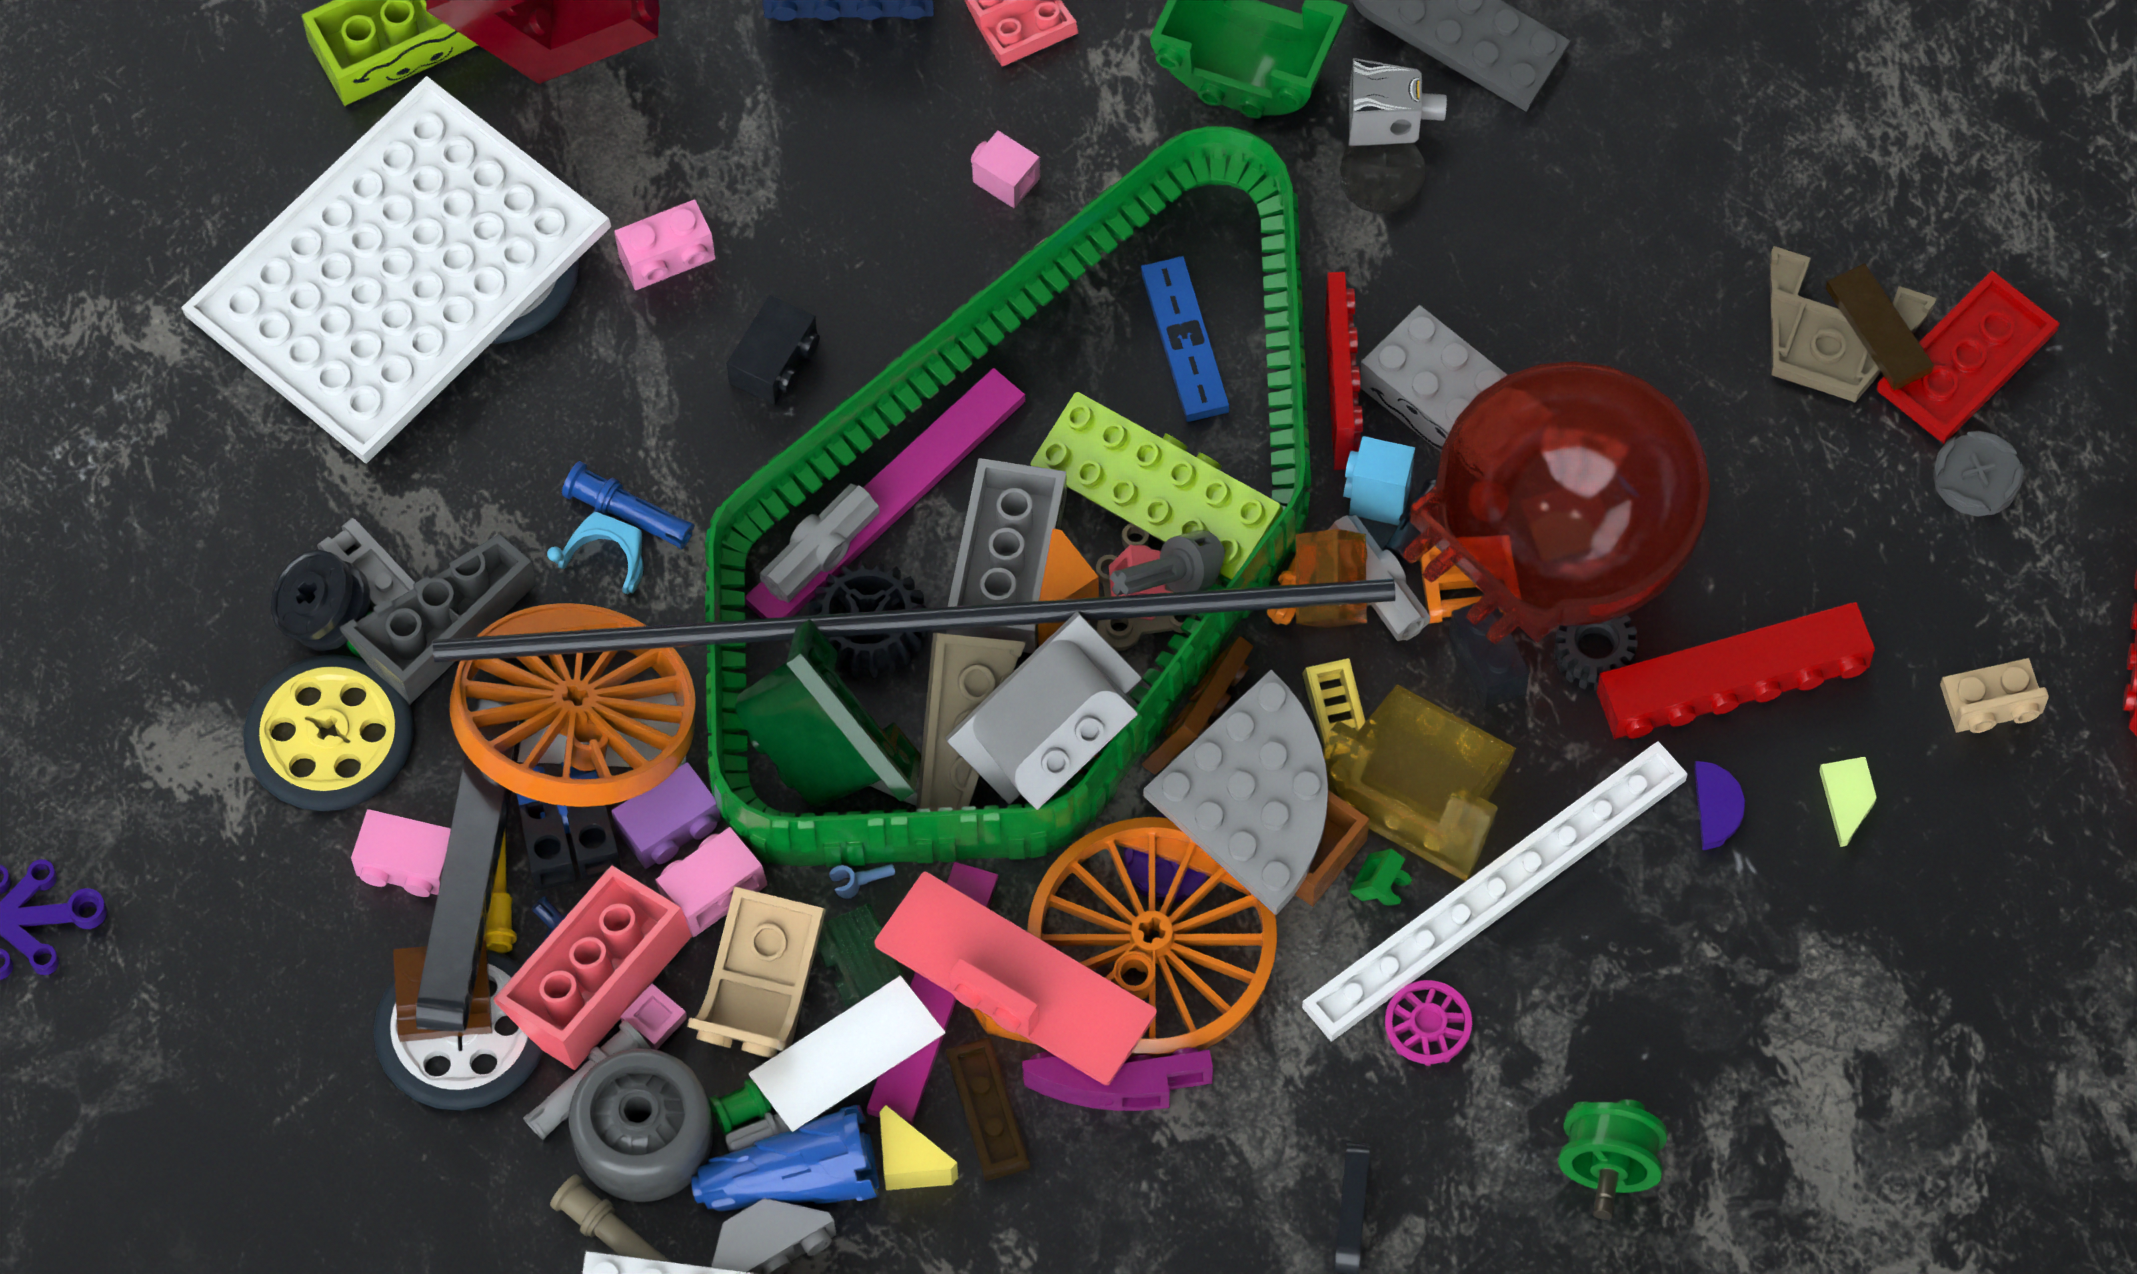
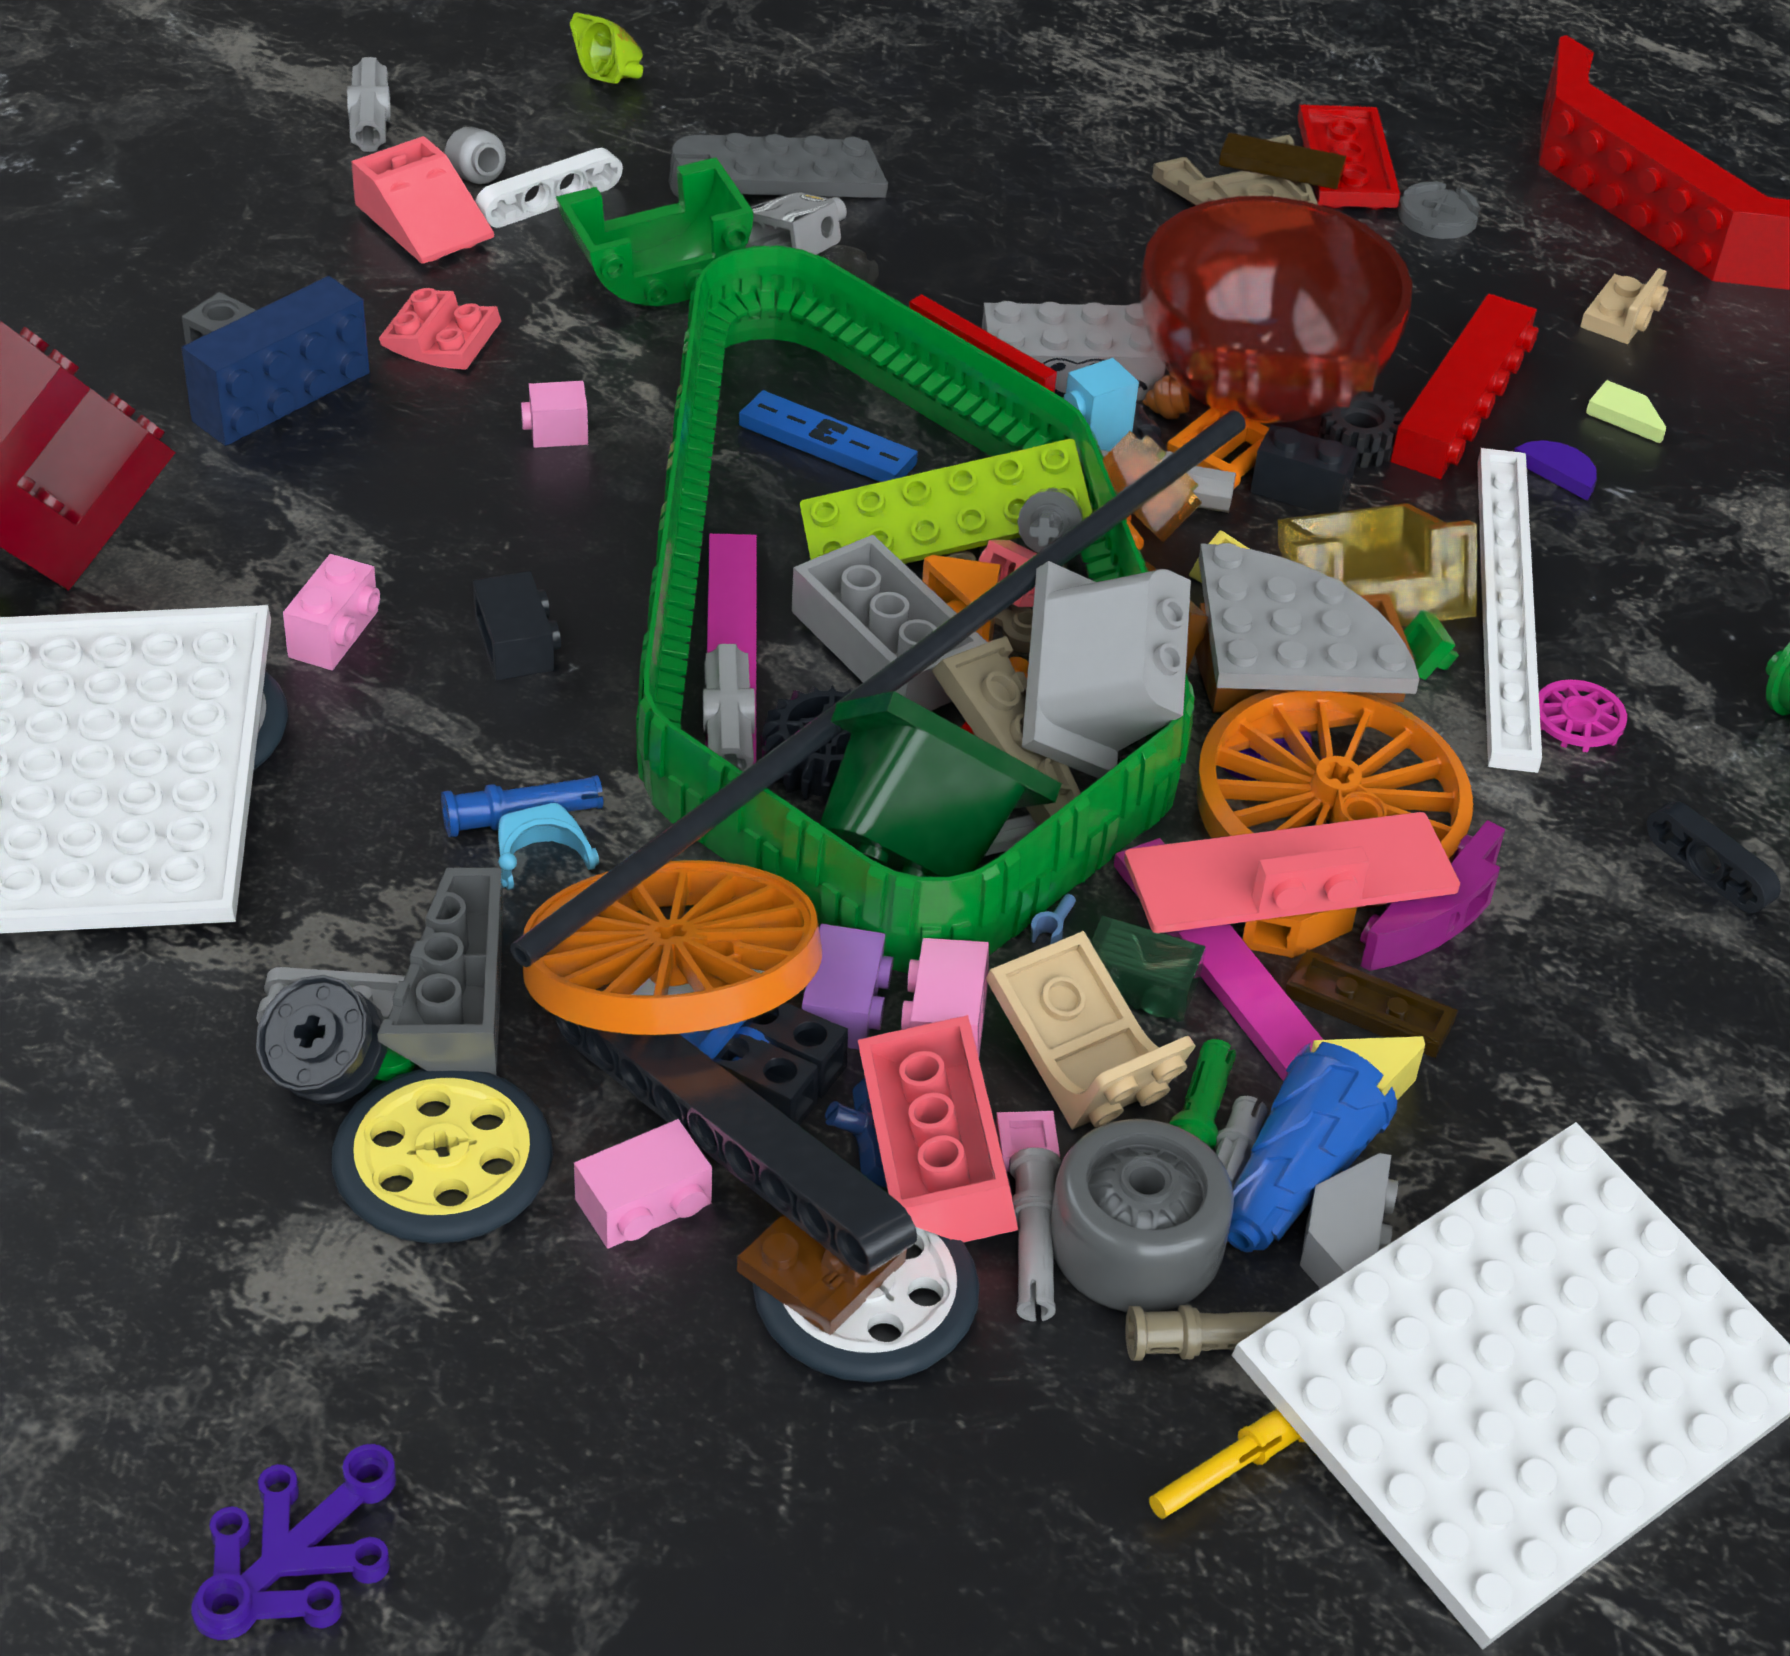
camera: 50 degrees left, 20 degrees down
(846, 1053) = (1240, 1023): white sticker -> none

